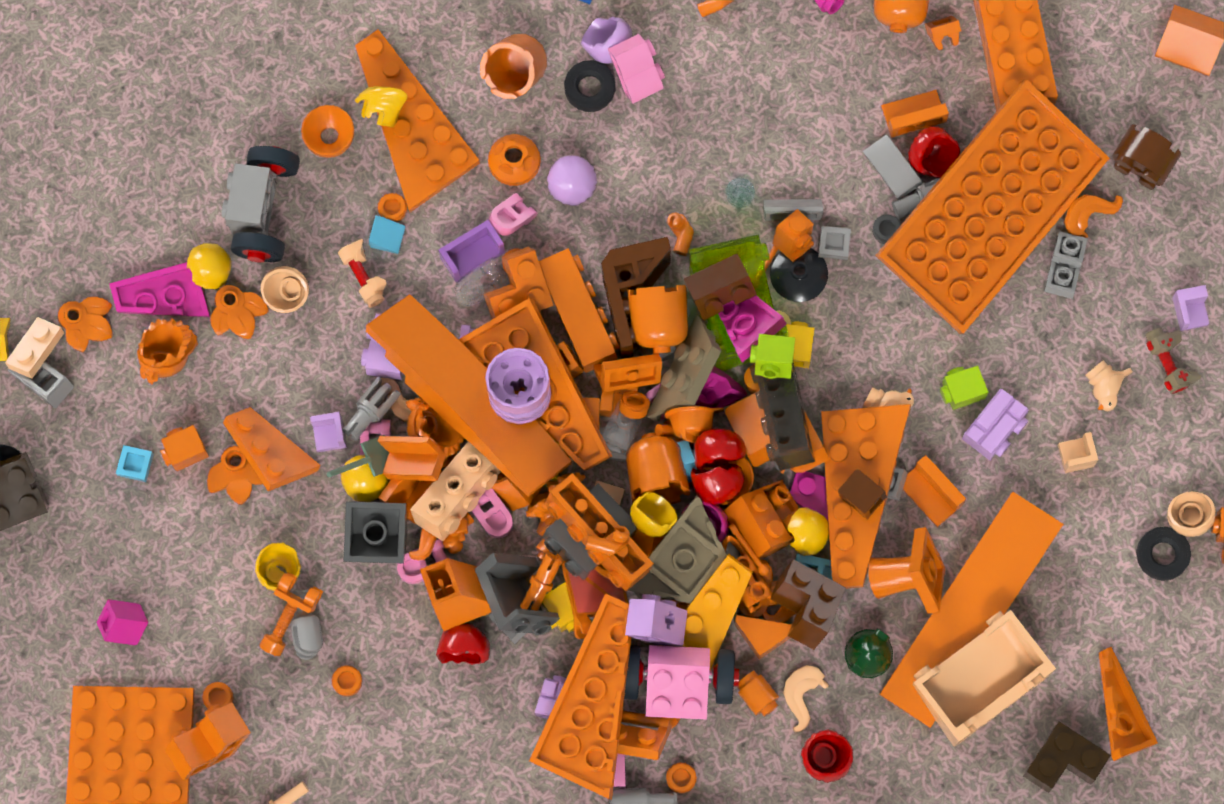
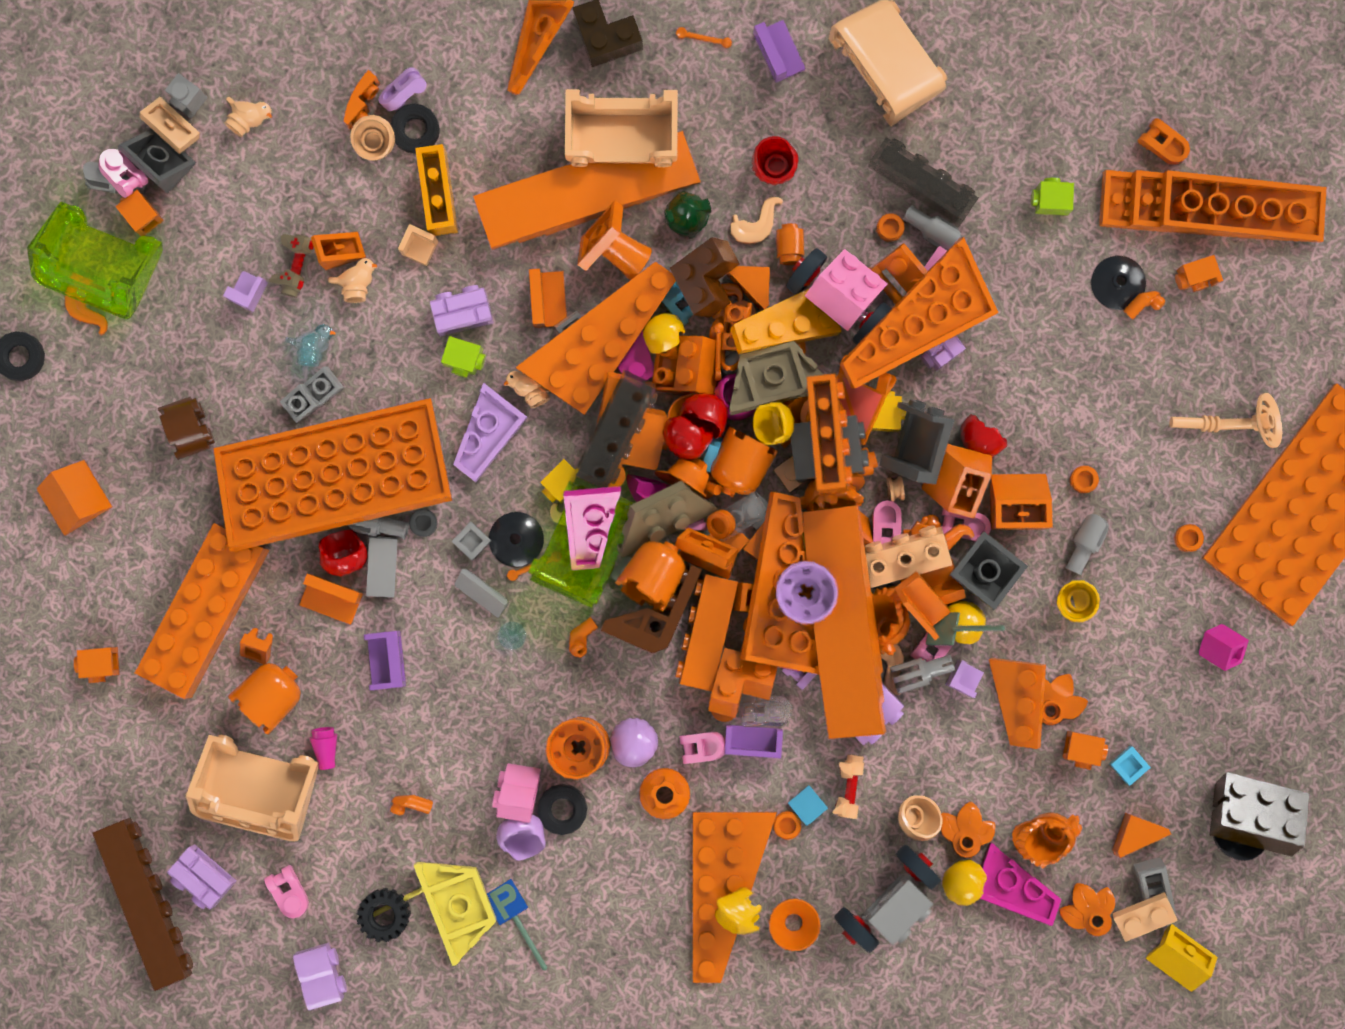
camera: 145 degrees left, 10 degrees up
(88, 411) = (1136, 834): none -> orange slope
(208, 743) = (1222, 503): orange brick -> none
(273, 643) = (1120, 546): orange bar -> none
(389, 615) = (1020, 502): none -> orange slope
(506, 546) = (895, 489): none -> light nougat bush
(513, 65) = (612, 865): orange cylinder -> none
(541, 582) = (893, 436): orange pin -> none
(611, 544) = (830, 411): orange arm -> none
(614, 123) = (561, 747): none -> orange wheel
(656, 621) = (831, 341): lavender brick -> none
(720, 285) = (590, 562): reddish brown brick -> none
(773, 356) = (596, 468): lime brick -> none
(794, 235) = (499, 566): orange brick -> none
(828, 96) = (386, 660): none -> medium lavender panel
(862, 494) = (605, 323): reddish brown panel -> none
(892, 342) = (488, 432): none -> lavender wing
(1081, 209) = (264, 426): orange piece -> none
(1099, 303) = (311, 345): none -> clear light blue animal
(1099, 509) = (436, 190): none -> light orange brick
(1143, 398) = (337, 249): none -> orange slope
(1201, 577) = (401, 89): none -> lavender plate

